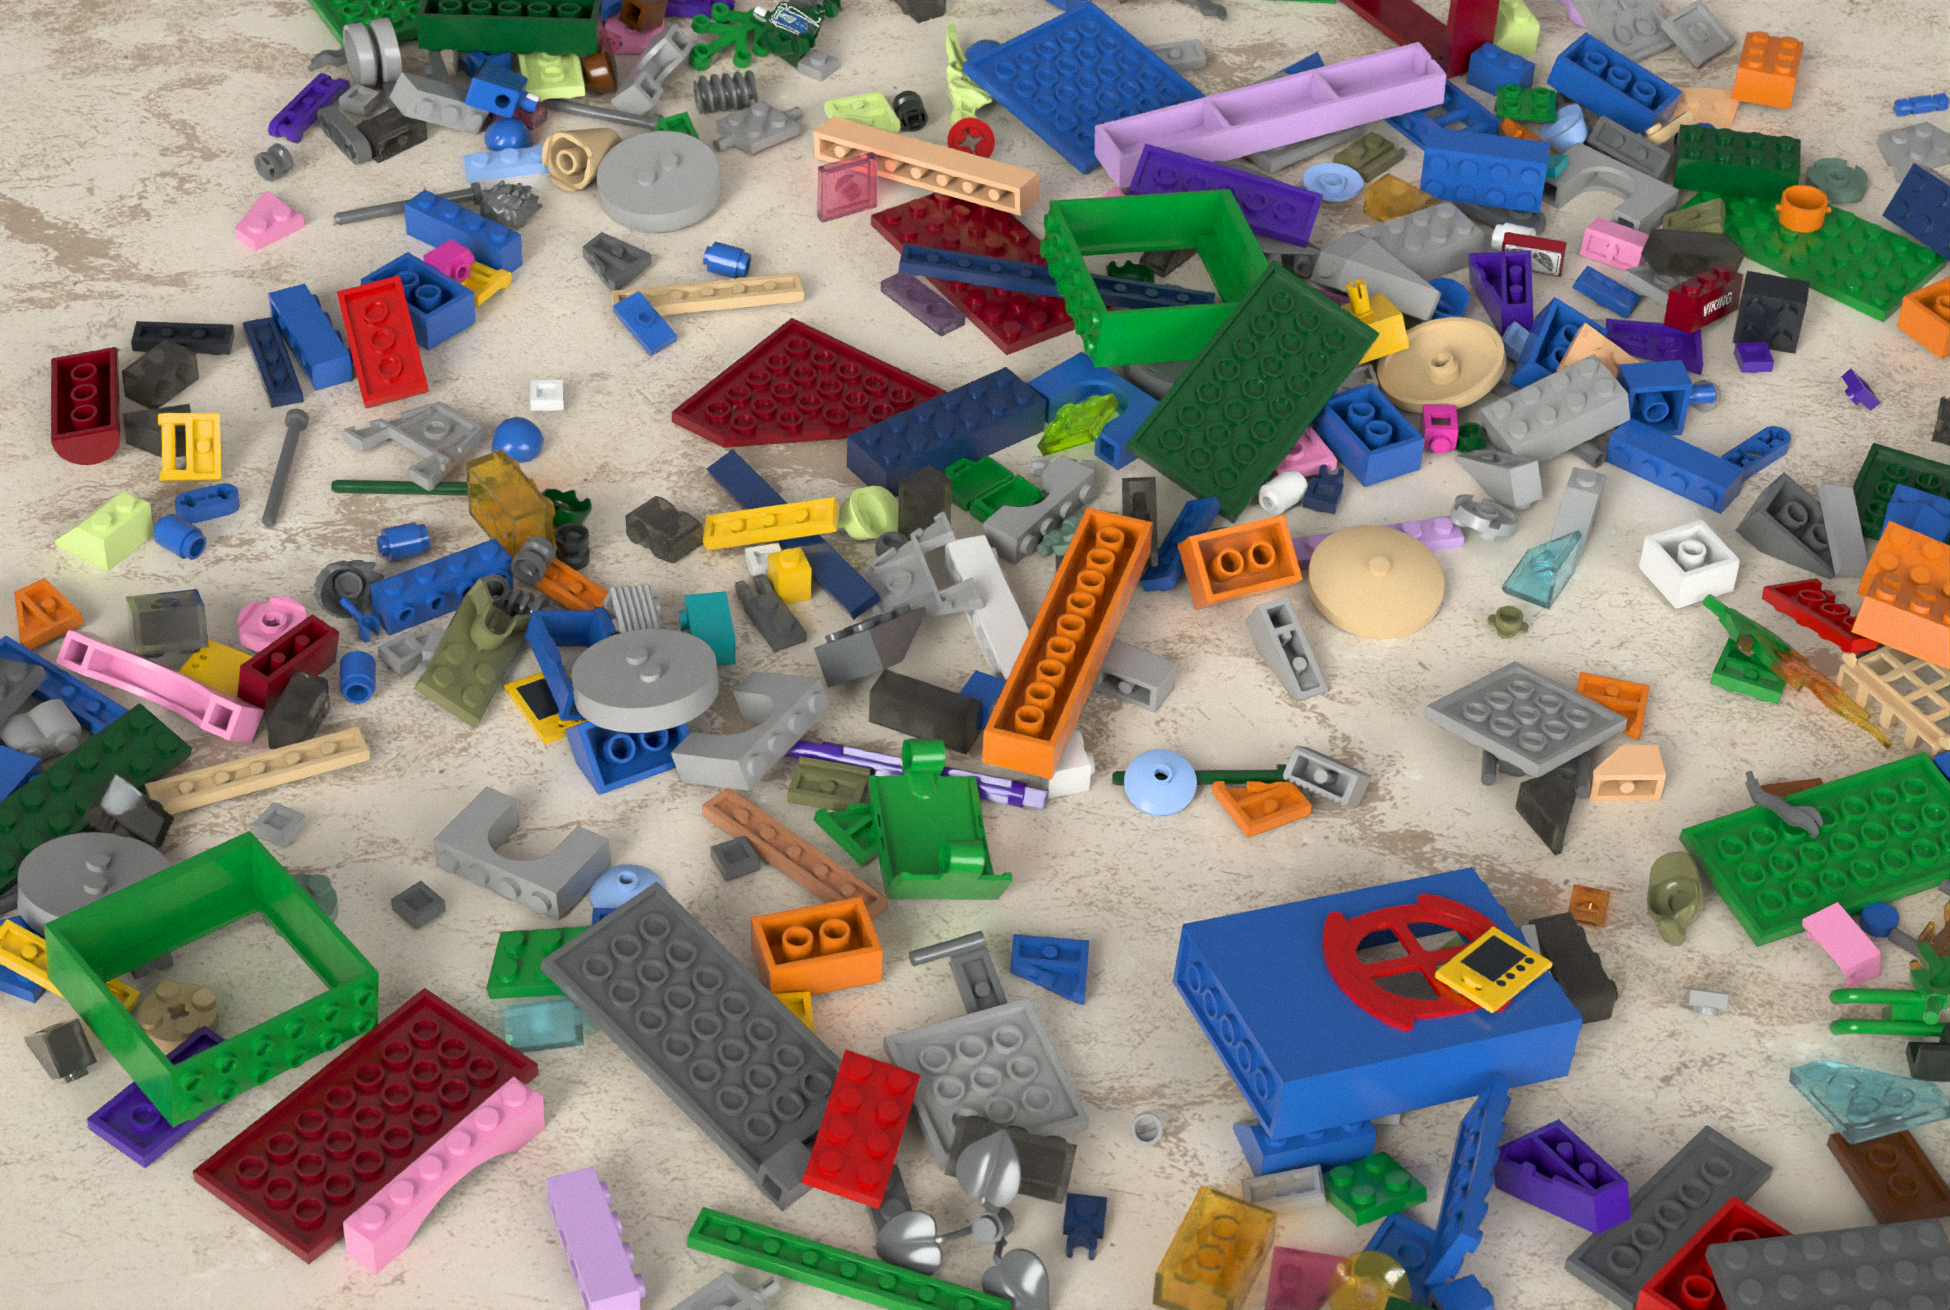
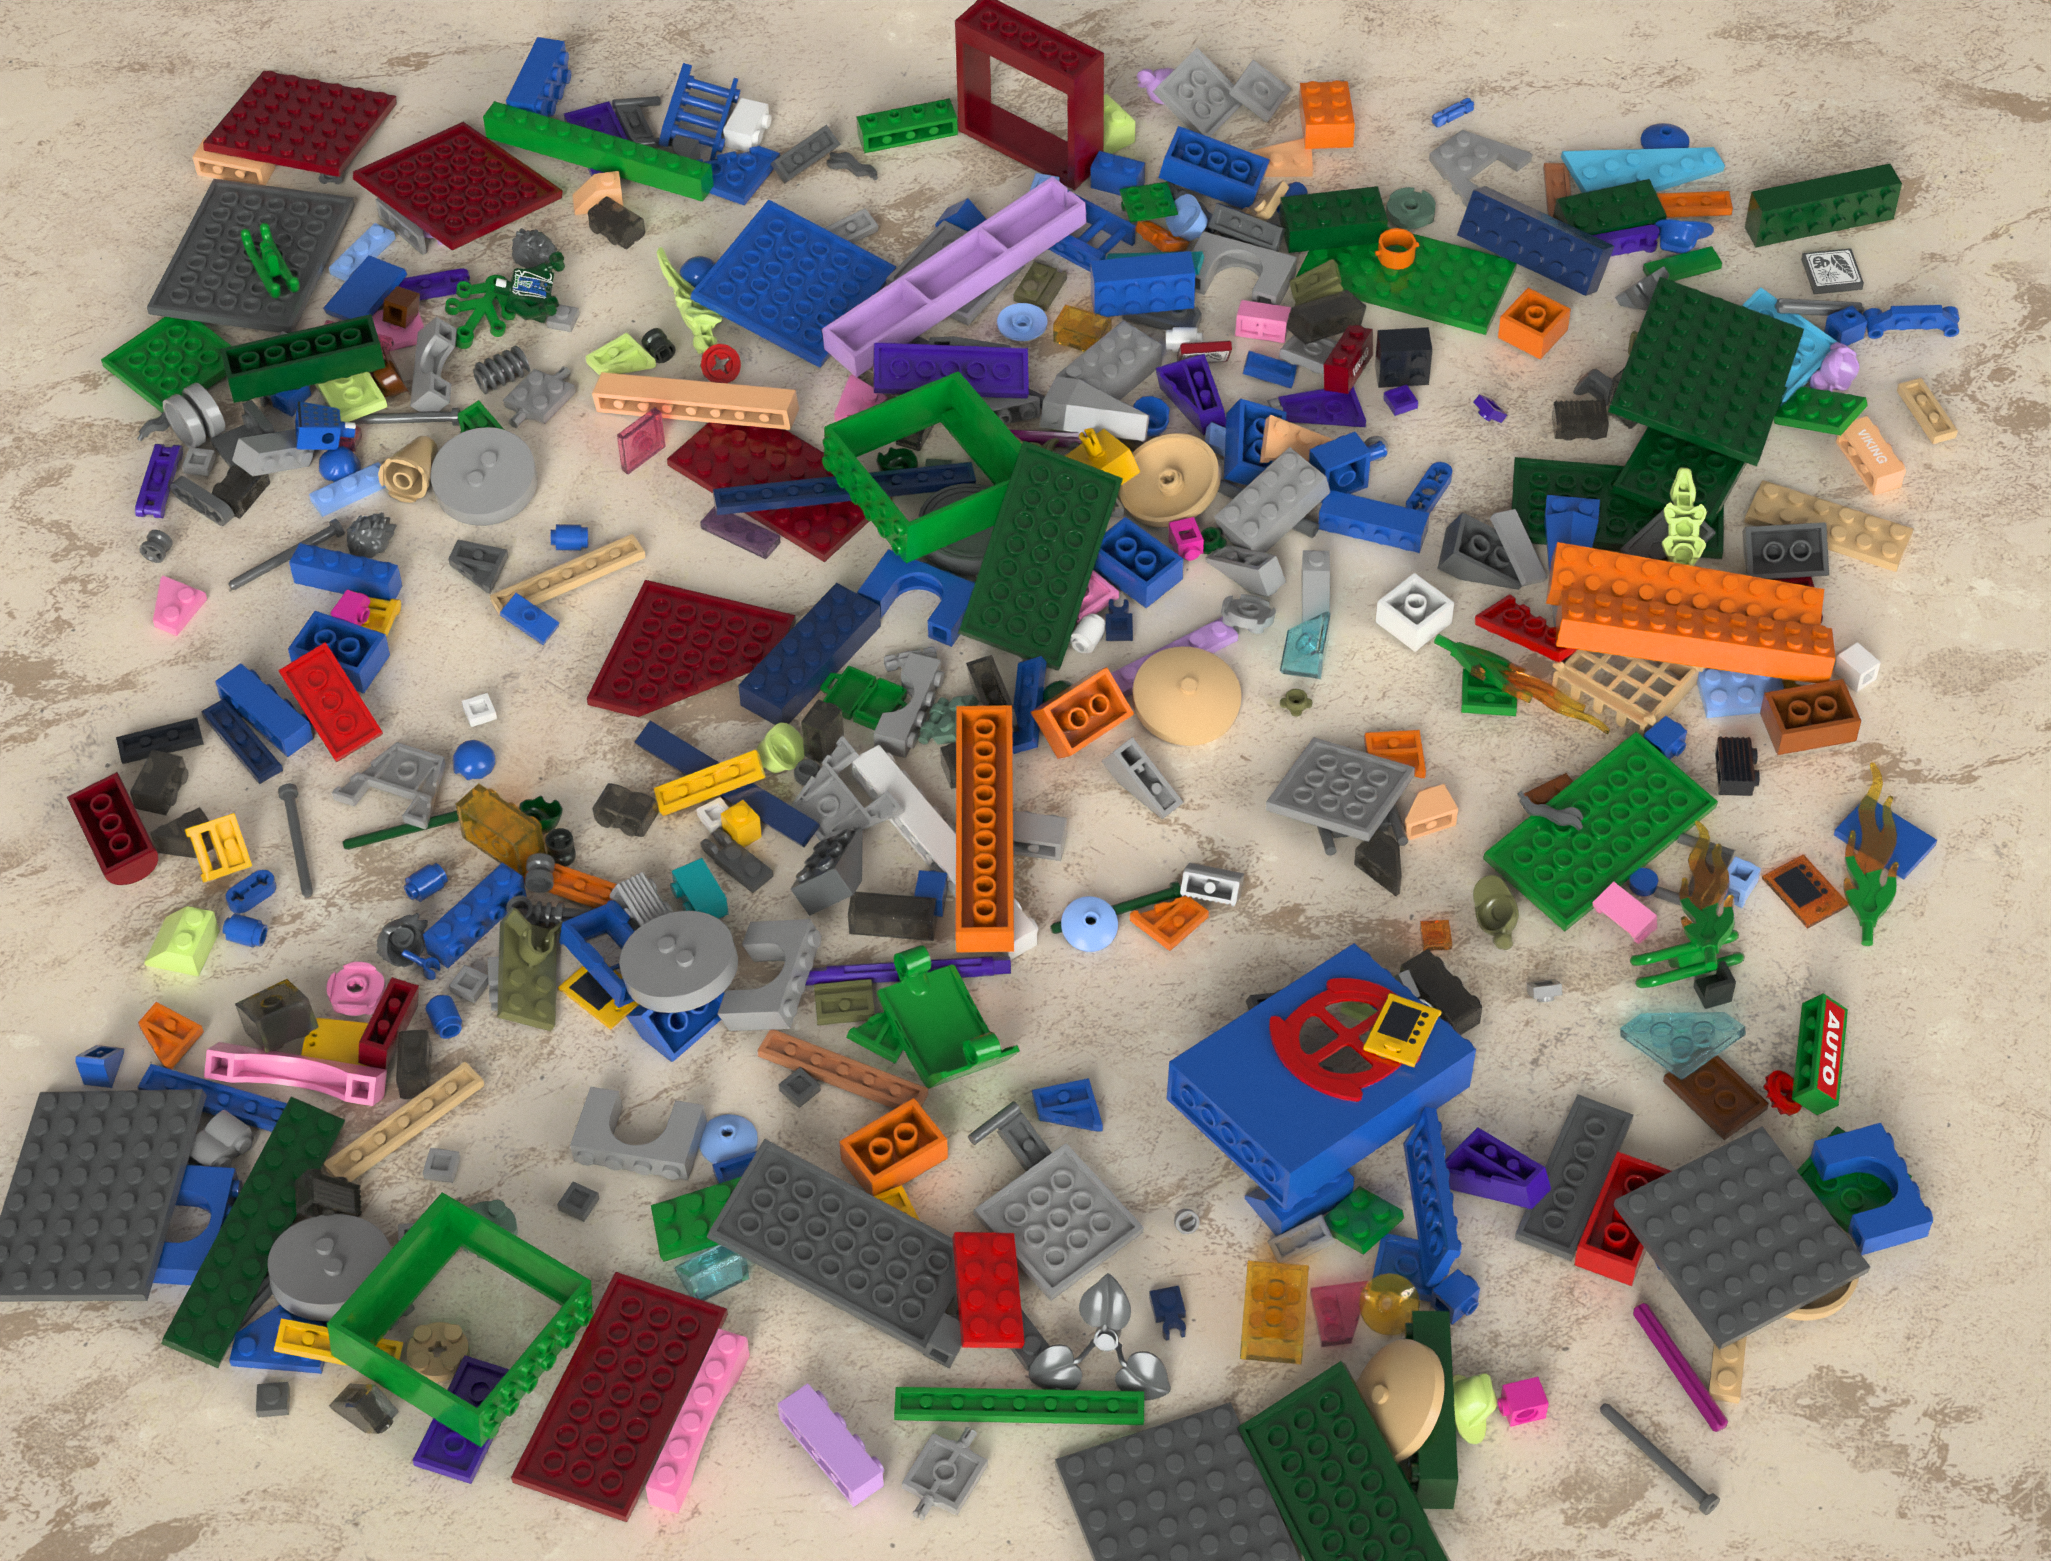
camera: 15 degrees left, 10 degrees up
(1043, 1160) = (1076, 1275): clear smoke brick -> none
(1077, 424) = (910, 618): clear neon green plate -> none

